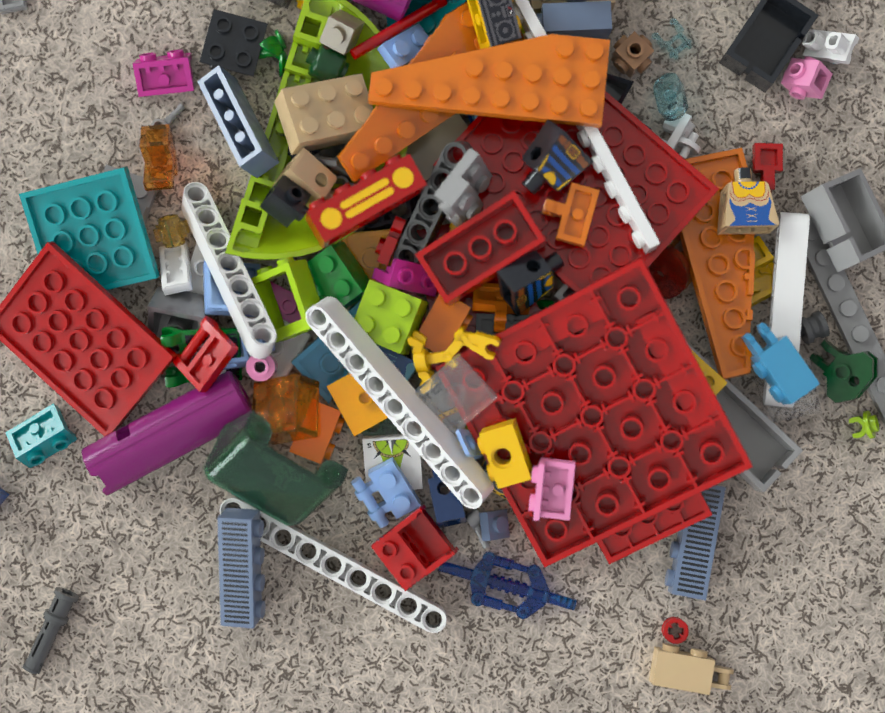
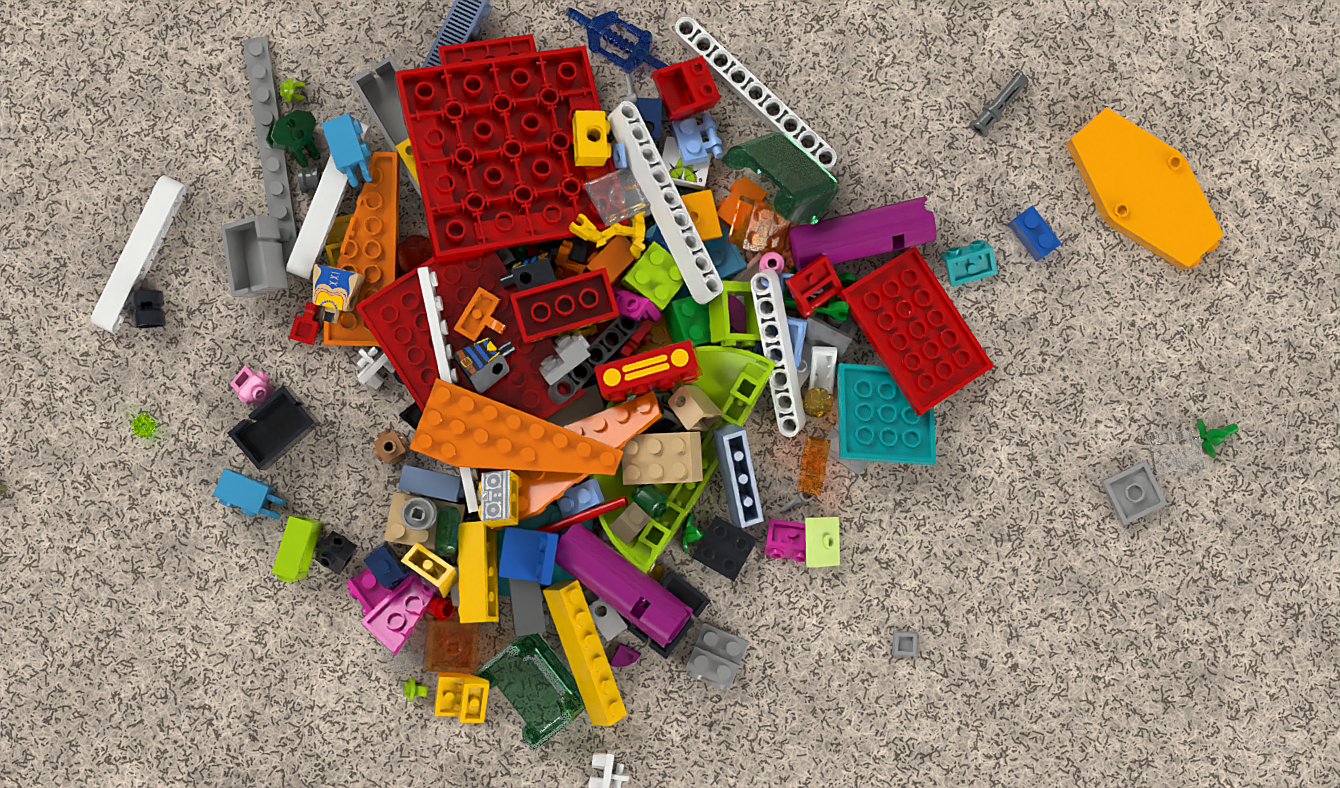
camera: 165 degrees left, 0 degrees up
(126, 77) = (822, 541): none -> yellowish green plate
(240, 567) = (830, 109): sand blue brick -> none
(286, 201) = (714, 392): black brick -> none
(494, 525) = (616, 90): sand blue plate -> none
(553, 489) = (559, 99): bright pink bracket -> none
(670, 97) = (370, 399): clear light blue plate -> none
(686, 43) = (347, 455): clear light blue piece -> none
(829, 46) = (224, 408): white hips -> none

